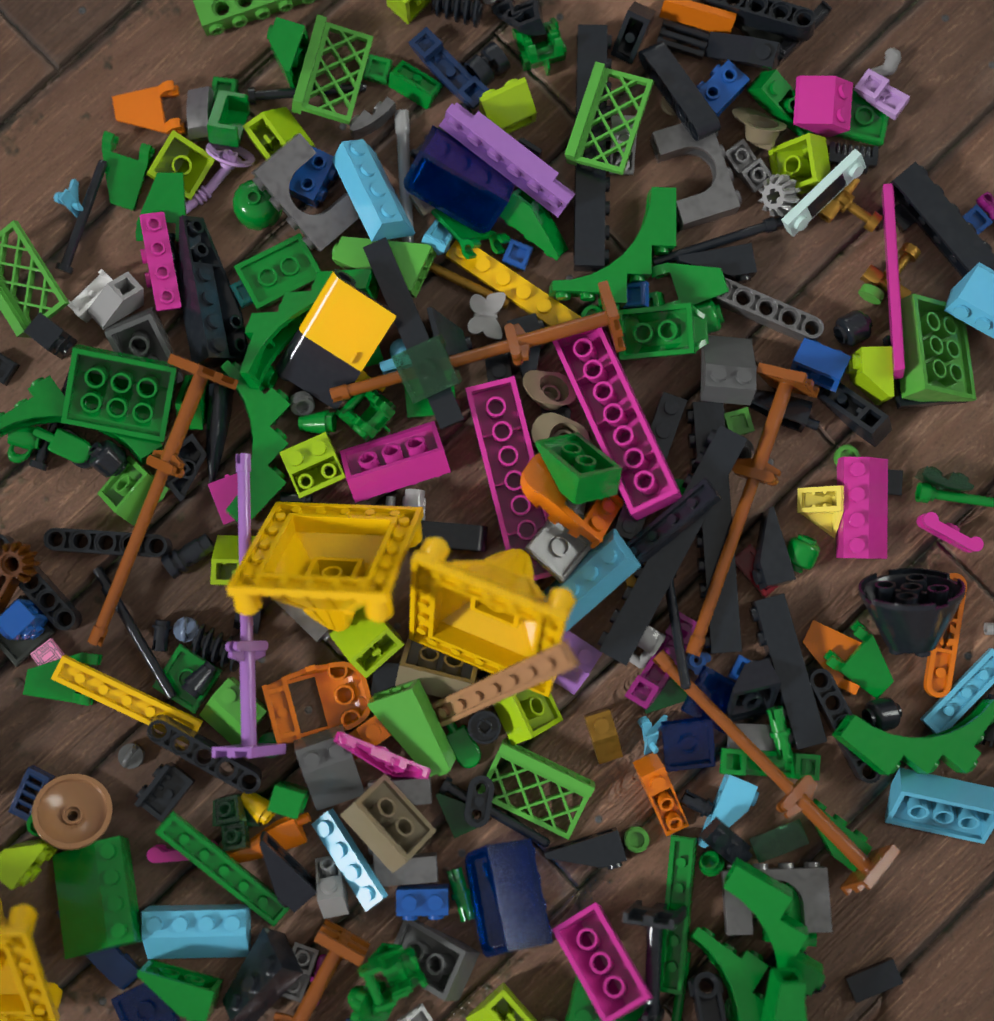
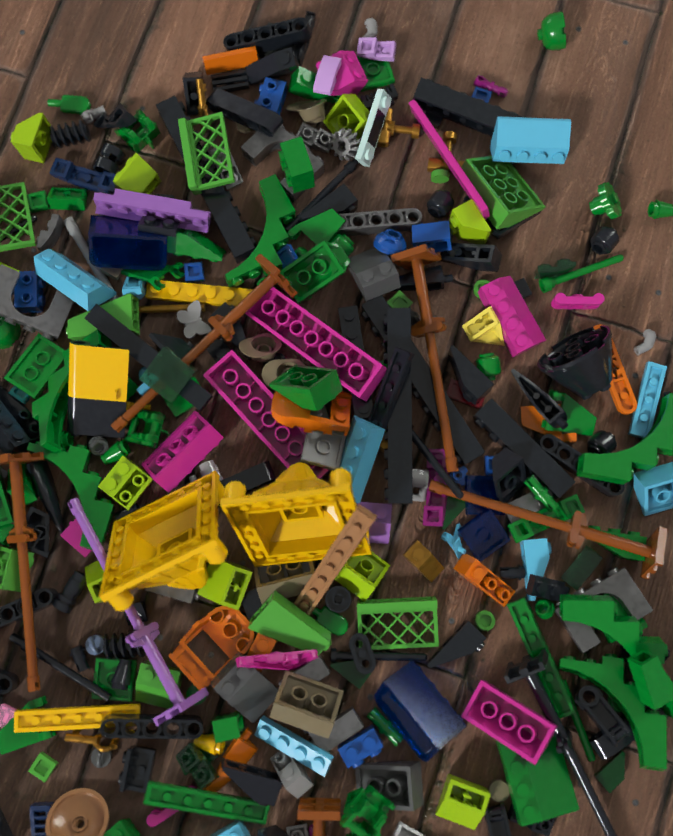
camera: 20 degrees left, 5 degrees down
(62, 732) = (43, 766): none -> bright green plate
(133, 734) = (95, 740): none -> pearl gold piece
(505, 182) = (158, 226): none -> black plate
(633, 56) = (202, 101): none -> pearl gold piece
(707, 195) = (296, 165): none -> green brick
(767, 345) = (390, 242): none -> blue piece
(802, 99) = (326, 75): none -> lavender slope
(839, 629) = (542, 402): none -> black piece

